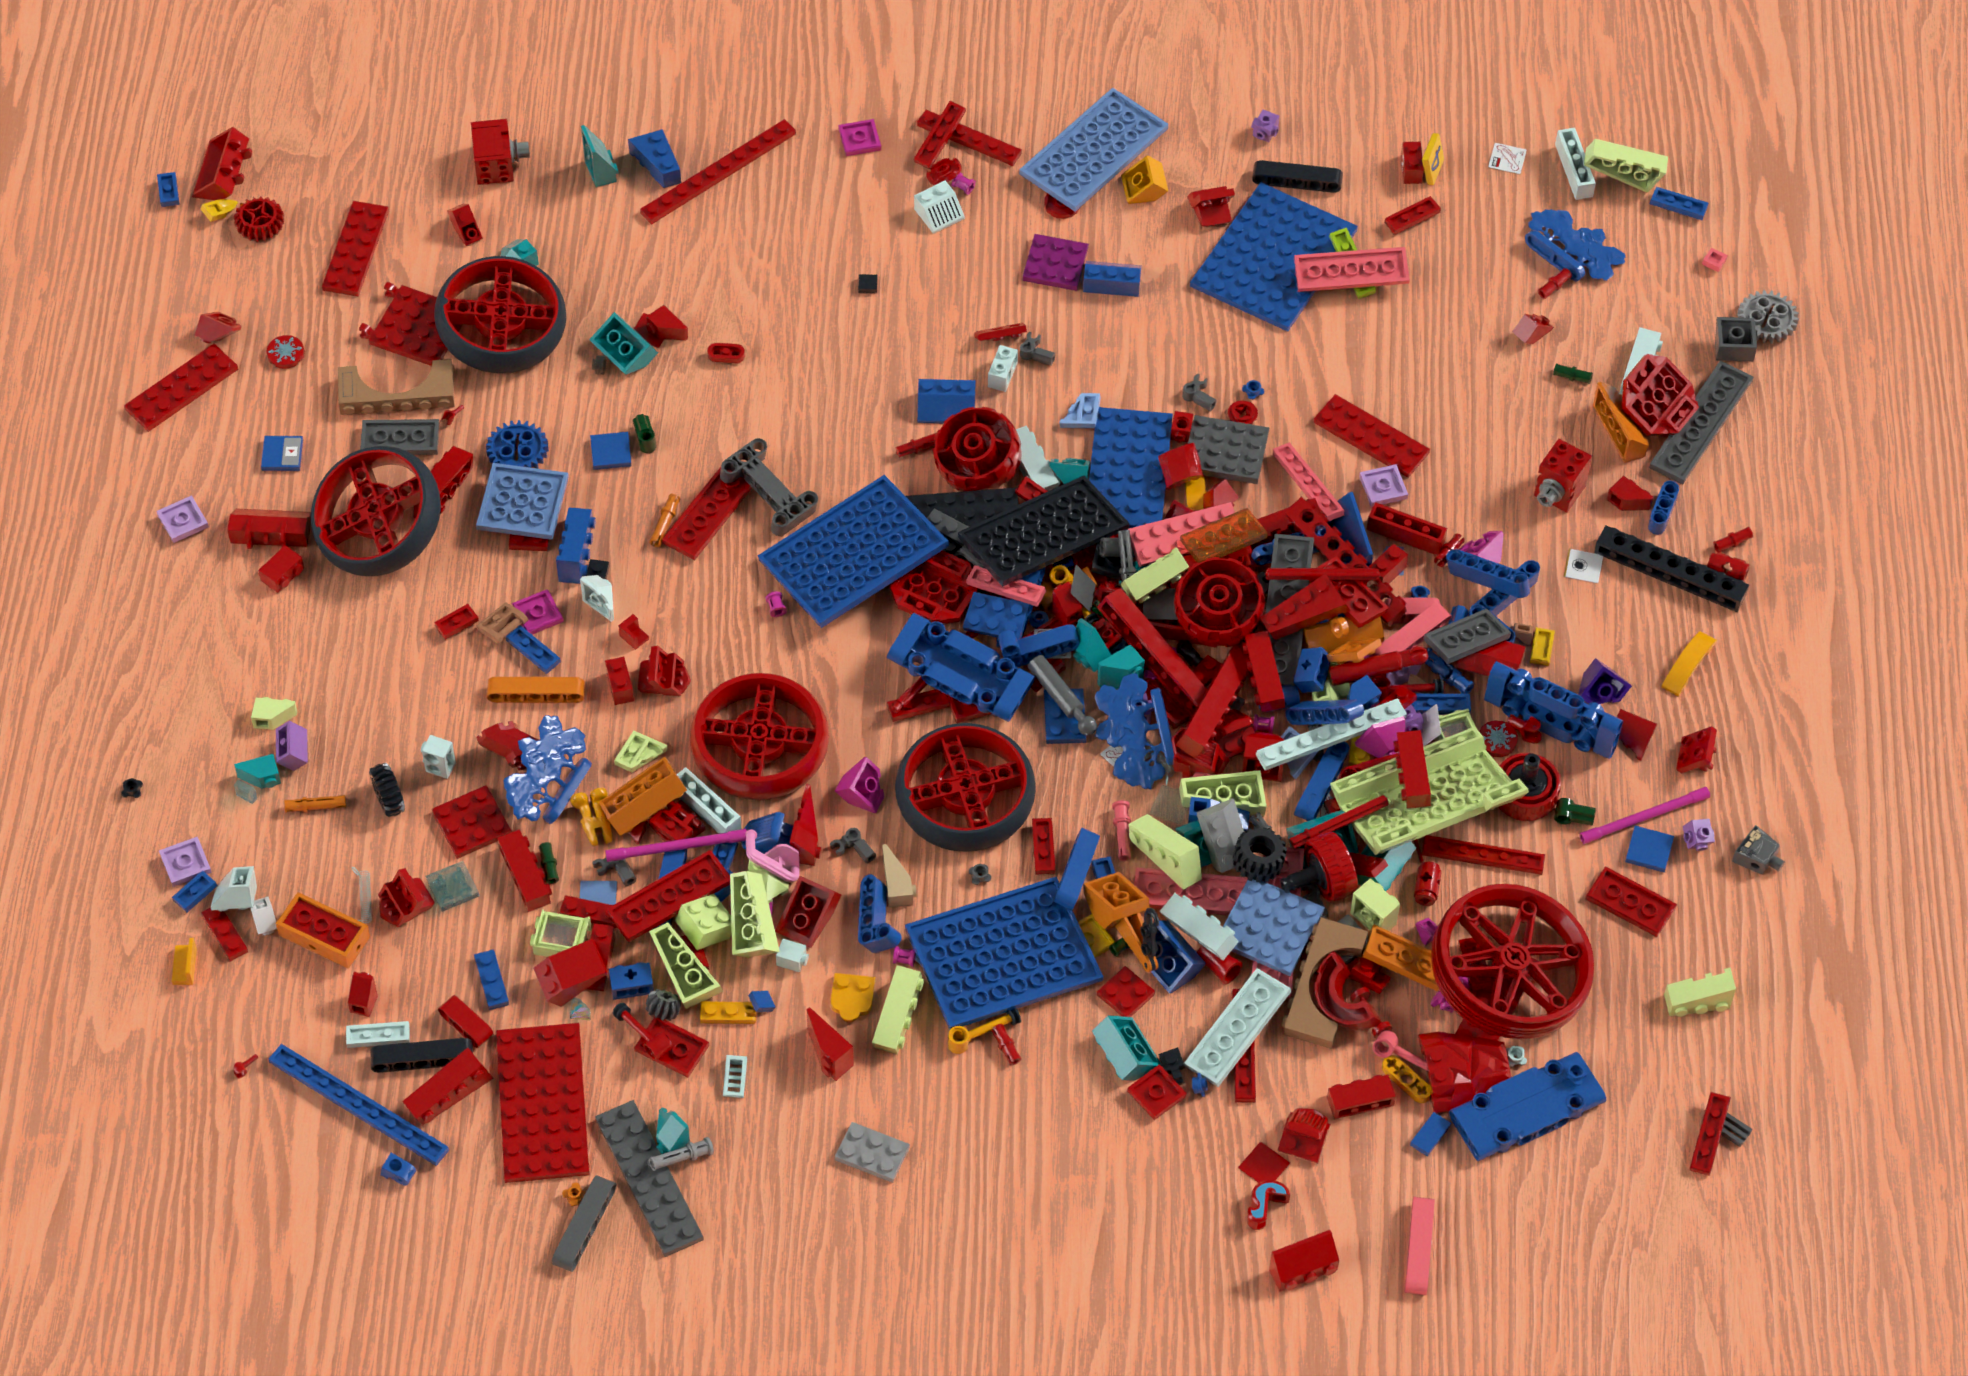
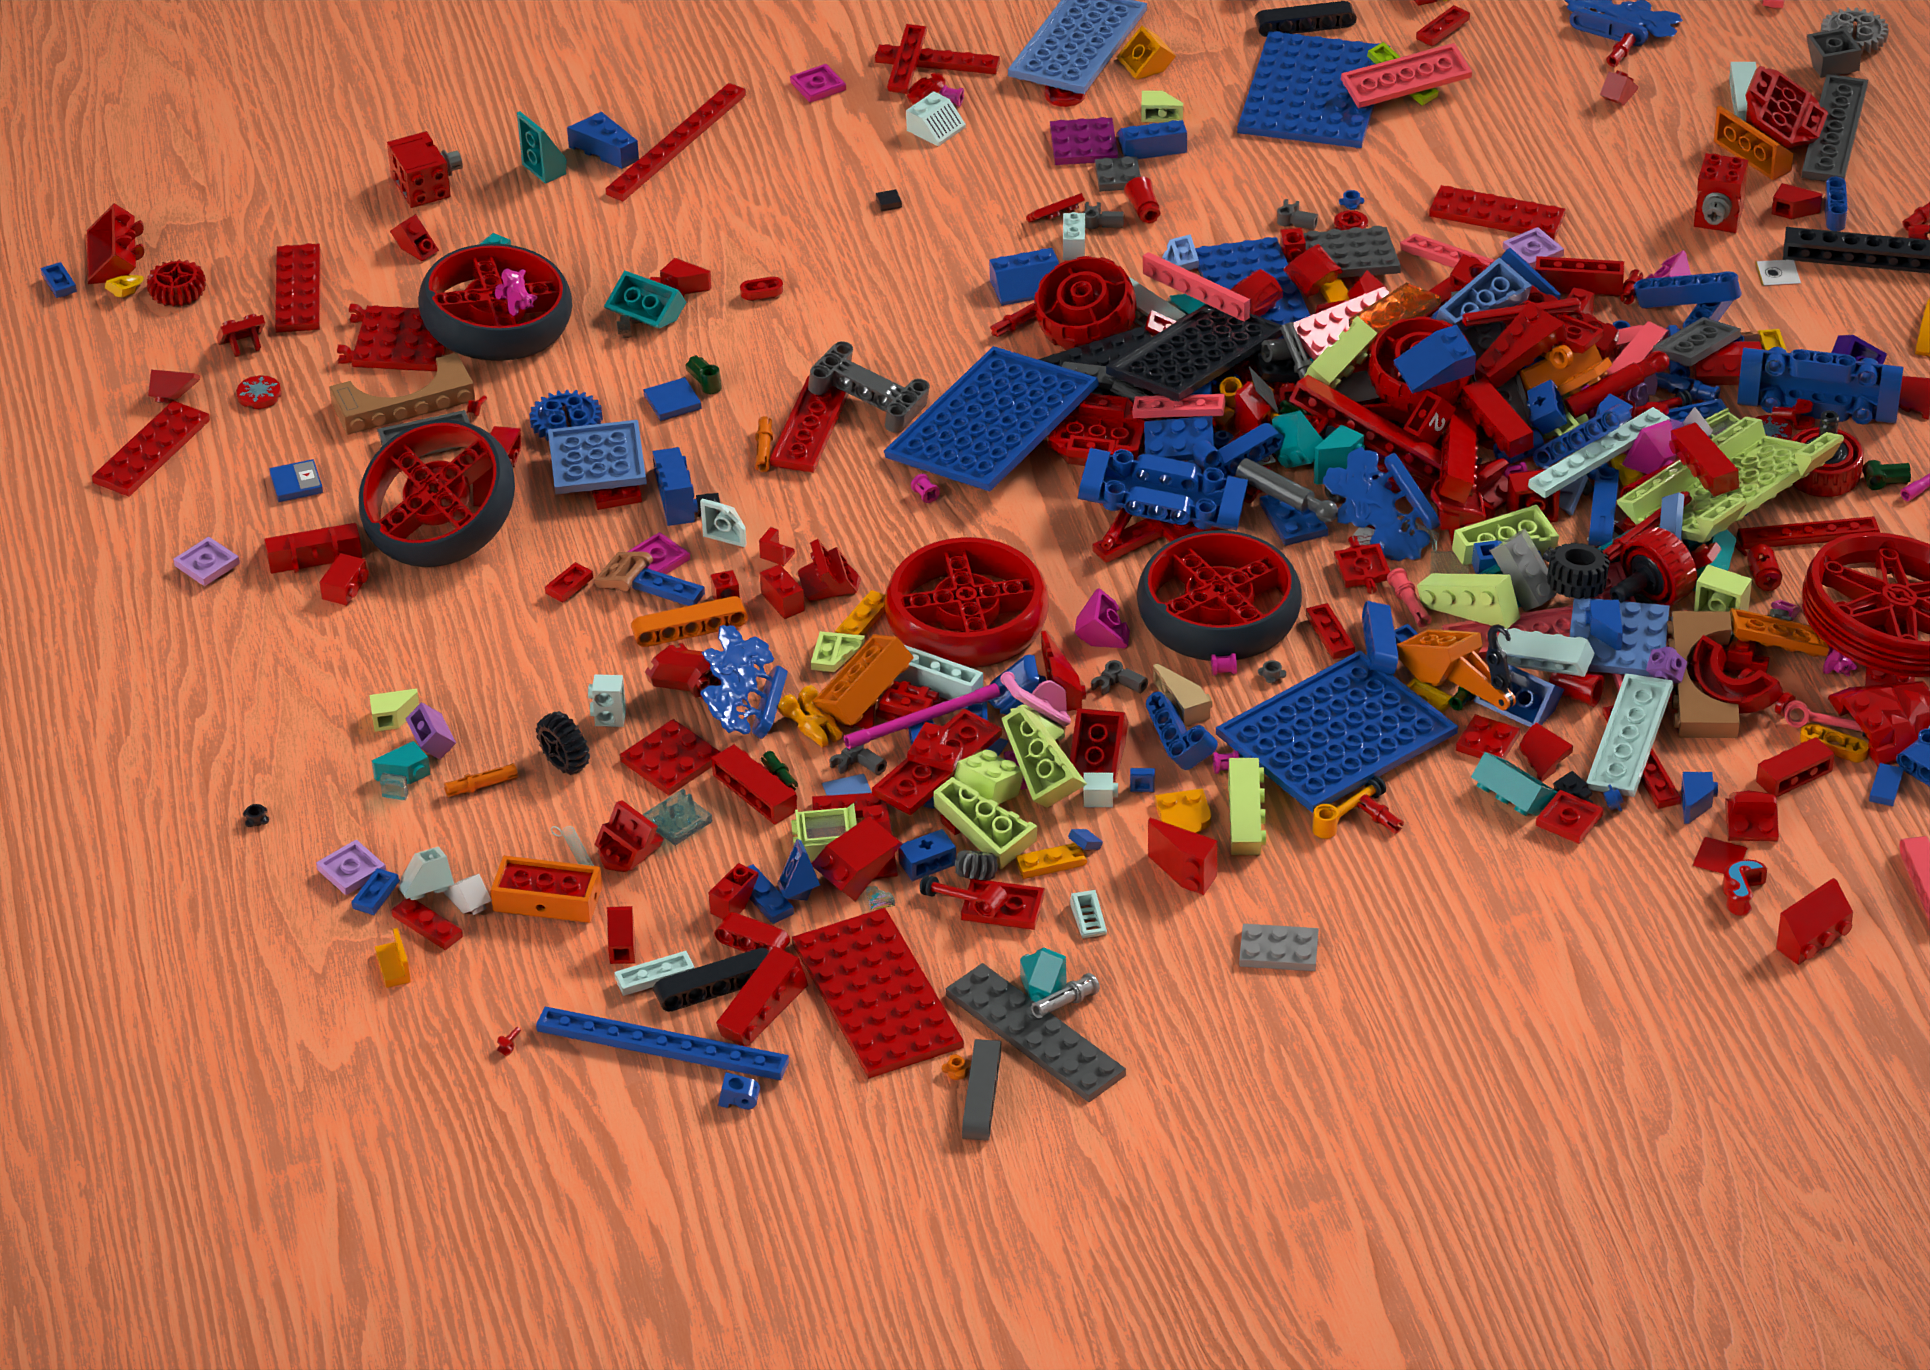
camera: 15 degrees left, 15 degrees down
(297, 284) = (233, 331): none -> red plate
(465, 974) = (732, 891): none -> red slope
(510, 315) = (514, 290): none -> dark pink animal
(520, 976) = (798, 874): none -> blue slope
(575, 664) = (724, 585): none -> red brick
(664, 885) = (931, 751): none -> red plate
(674, 723) = (863, 615): none -> light orange plate
(829, 955) = (1142, 779): none -> blue tile
(943, 856) = (1223, 664): none -> dark pink bush
(1069, 306) = (1116, 172): none -> dark grey plate
(1070, 461) = (1196, 286): none -> coral plate
(1076, 343) = (1142, 197): none -> red plant
(1097, 785) = (1362, 565): none -> red plate
(1120, 479) = (1261, 290): none -> red slope
(1132, 244) = (1160, 107): none -> yellowish green slope
(1165, 1019) = (1544, 750): none -> red slope
(1206, 657) = (1429, 418): none -> red brick
(1212, 205) = (1228, 57): red piece -> none
(1224, 610) = (1437, 360): none -> blue slope
(1259, 914) = (1605, 622): none -> blue slope
(1269, 1100) = (1697, 794): none -> blue slope
(1291, 971) = (1666, 664): none -> medium lavender brick
(1297, 550) = (1492, 289): none -> medium blue wedge
(1358, 828) = (1672, 513): none -> medium blue tile
(1416, 938) = (1779, 613): none -> dark grey plate
(1573, 373) = (1680, 117): dark green pin -> none

